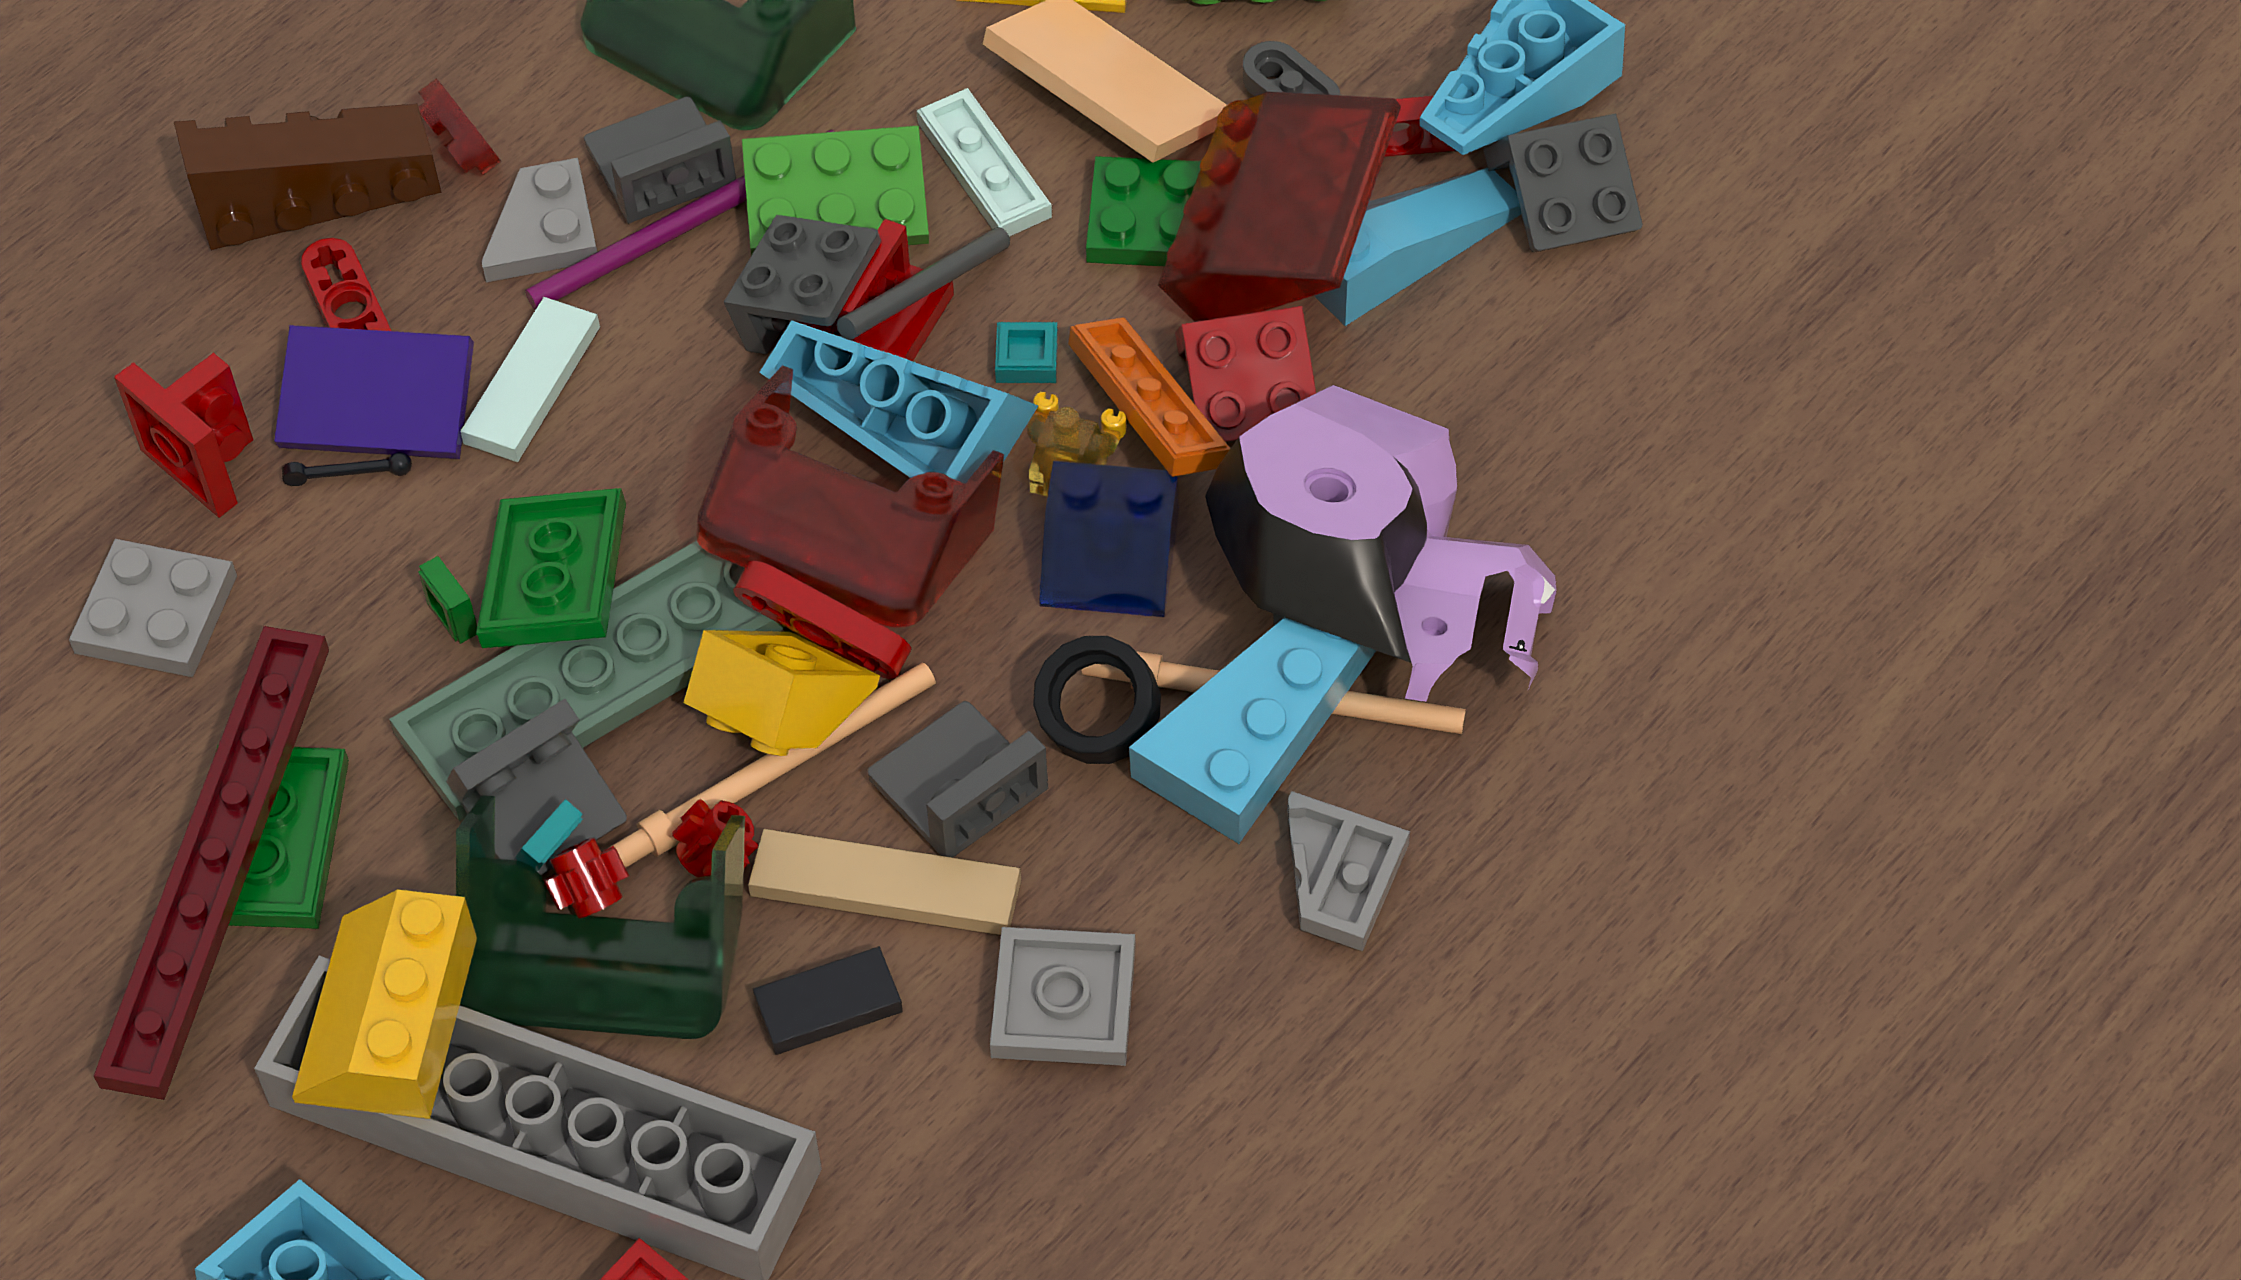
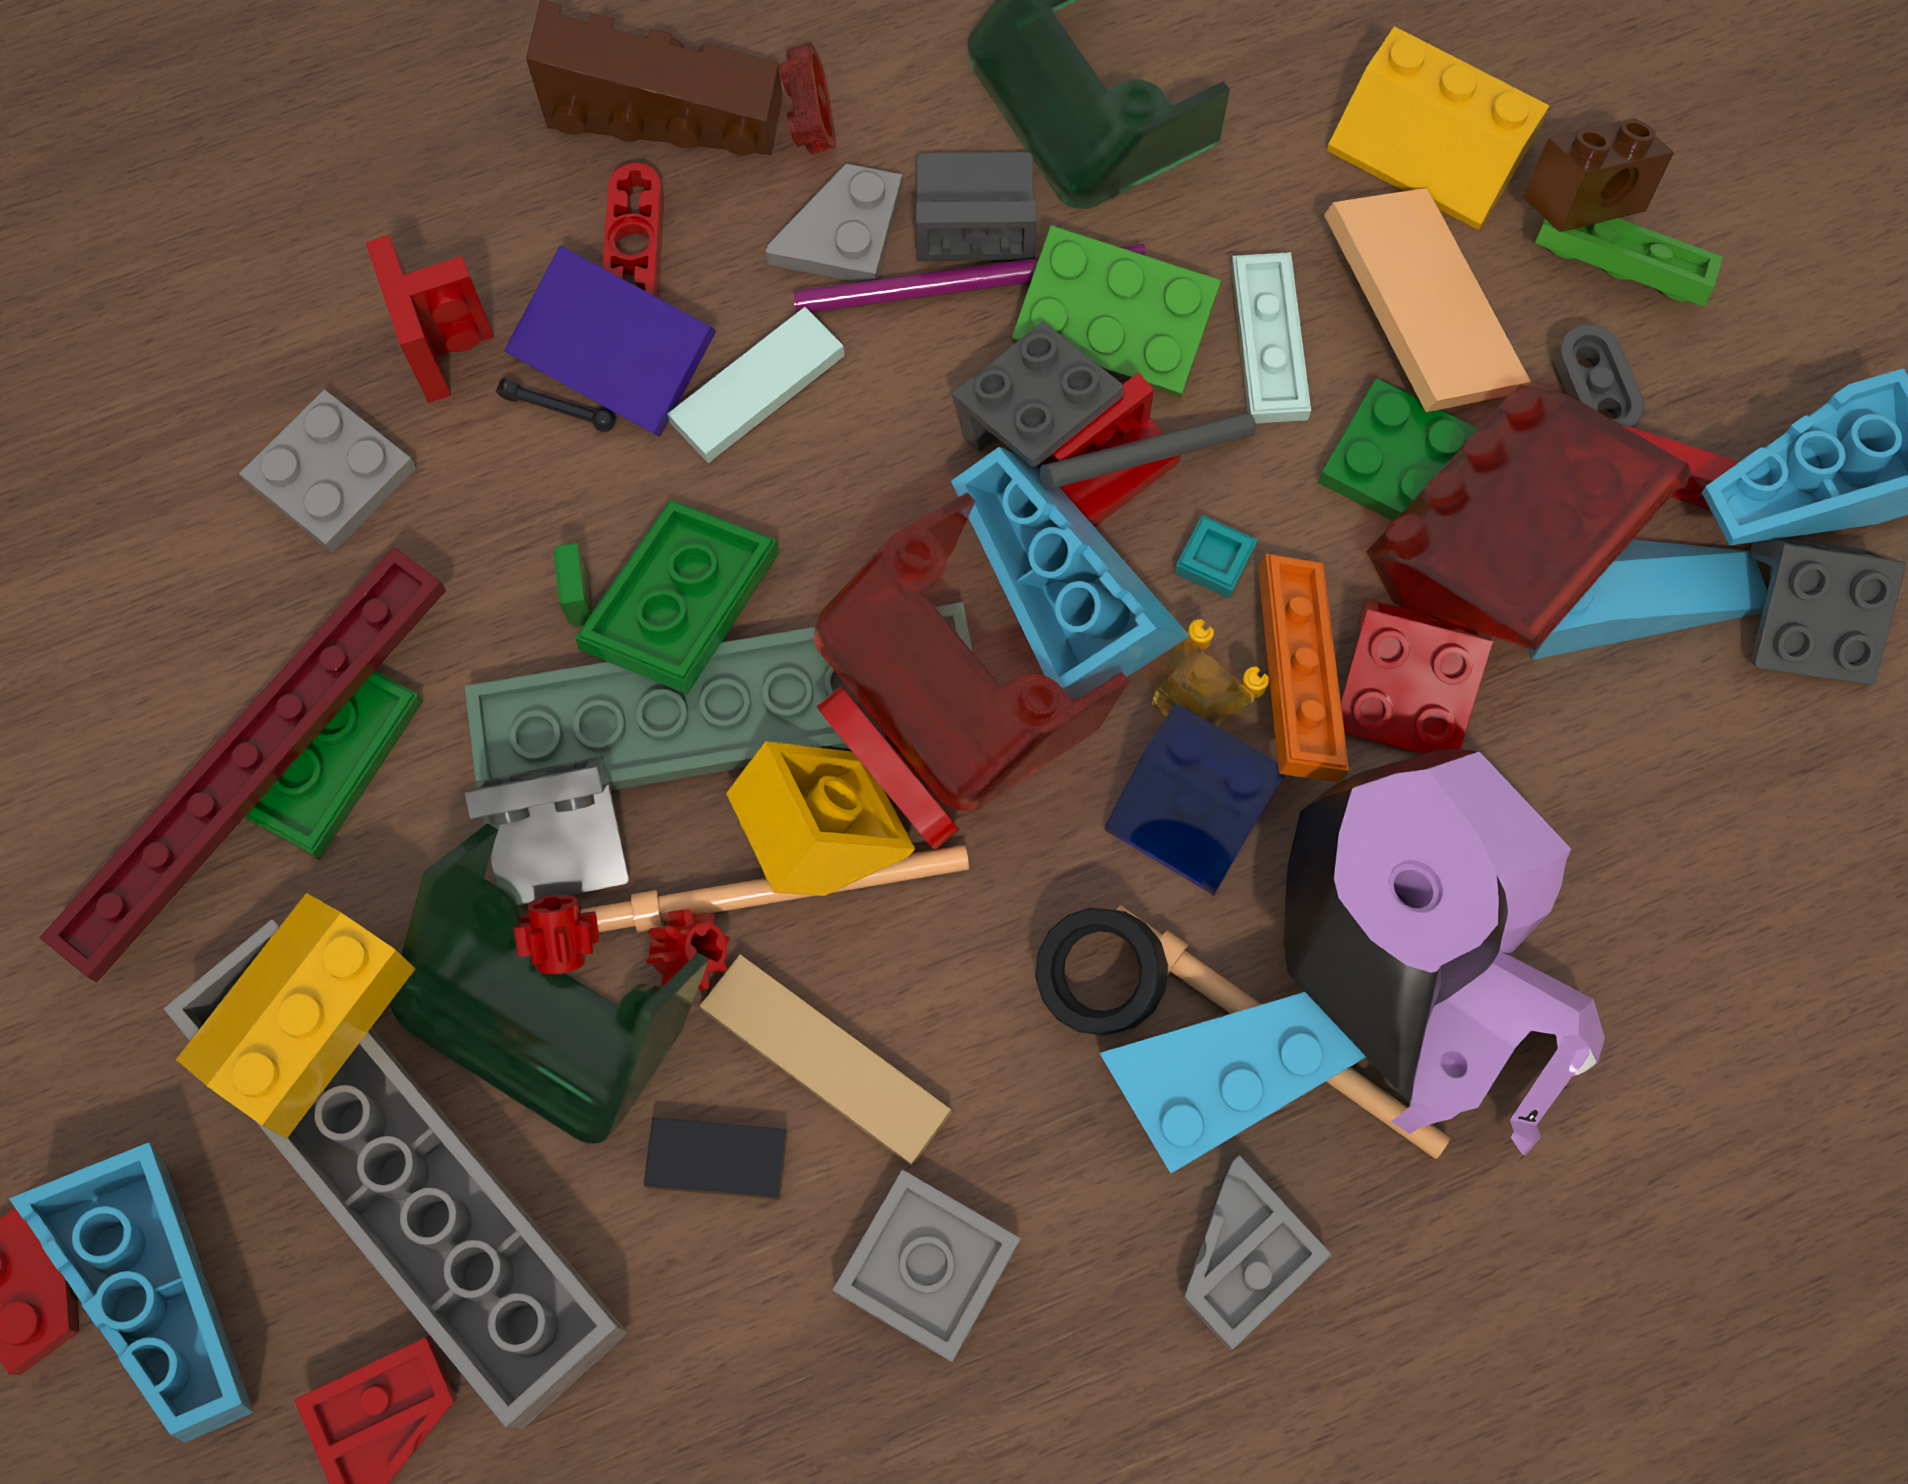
camera: 25 degrees right, 15 degrees up
(550, 835) = (538, 882): teal tile -> none
(960, 778) = (939, 984): dark grey bracket -> none

